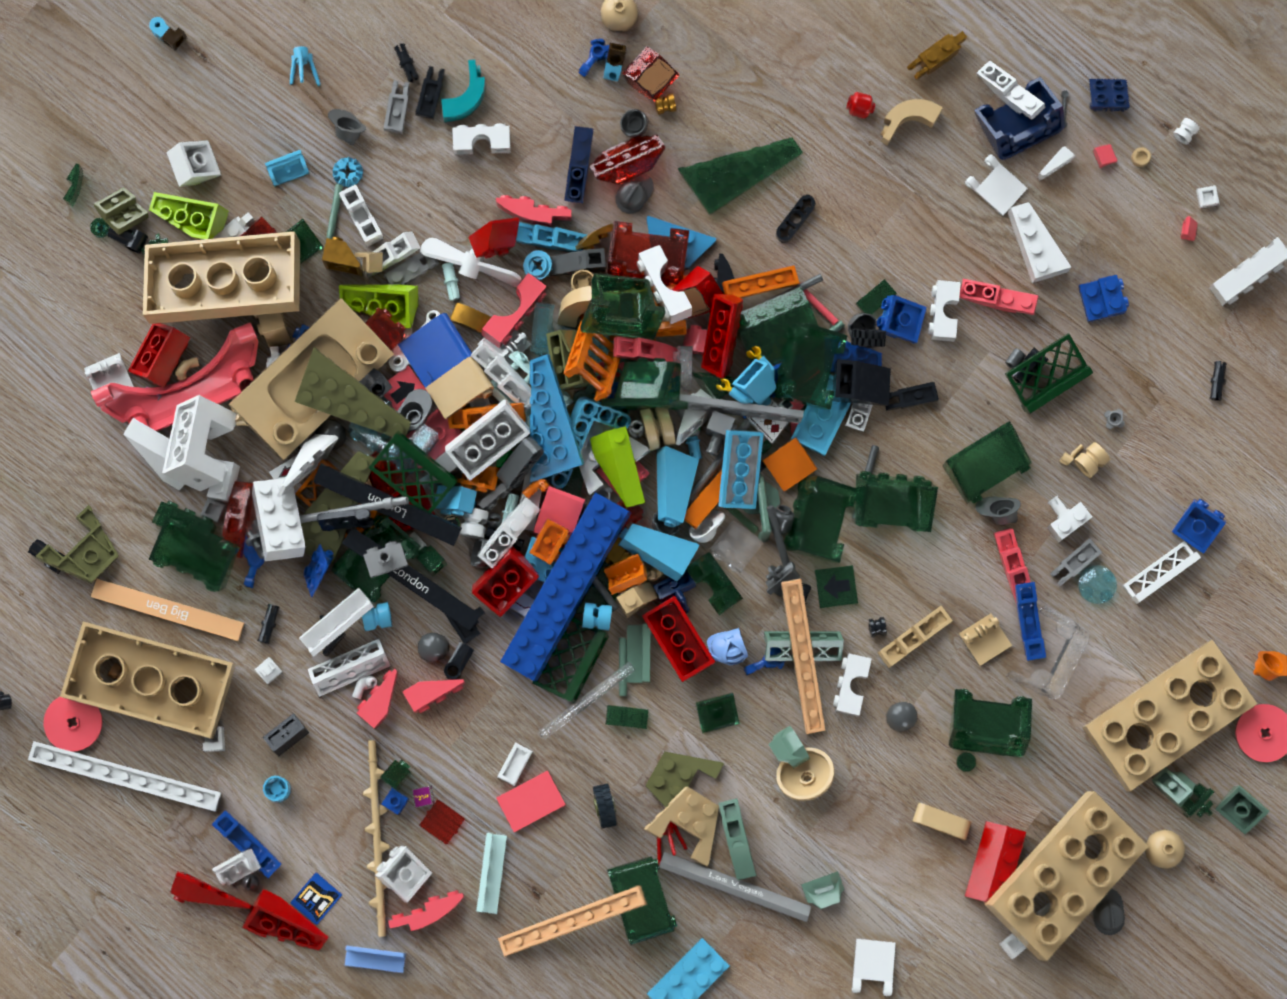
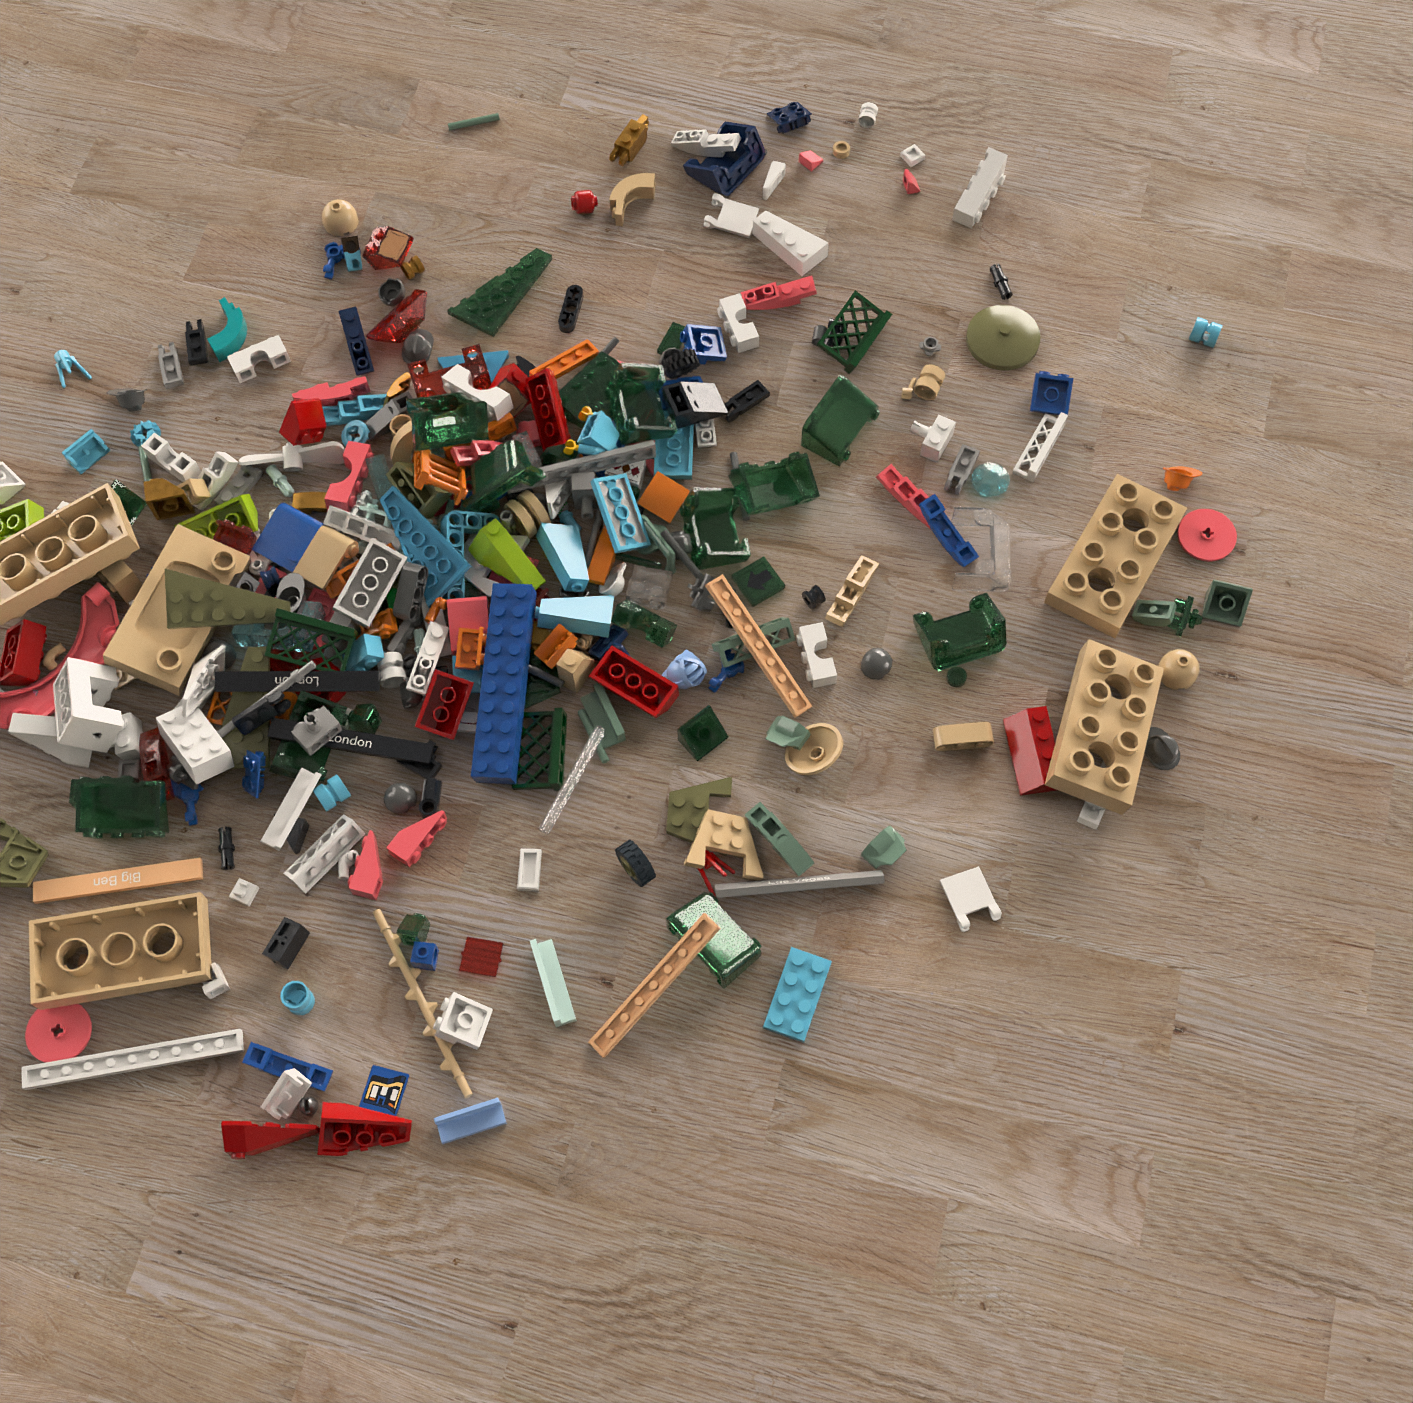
camera: 20 degrees left, 15 degrees down
(403, 382) = (270, 577): none -> dark blue wheel
(406, 62) = (164, 328): black pin -> none
(423, 796) = (451, 940): magenta tile -> none
(435, 910) = (512, 1043): coral slope -> none
(530, 801) = (561, 897): coral tile -> none
(603, 613) = (546, 696): medium azure wheel -> none
(626, 717) = (618, 776): clear green slope -> none
(985, 639) = (916, 565): tan hinge -> none
(1000, 509) = (873, 455): dark grey piece -> none
(1103, 298) = (869, 260): blue plate -> none
(1188, 441) = (1003, 337): none -> olive dish

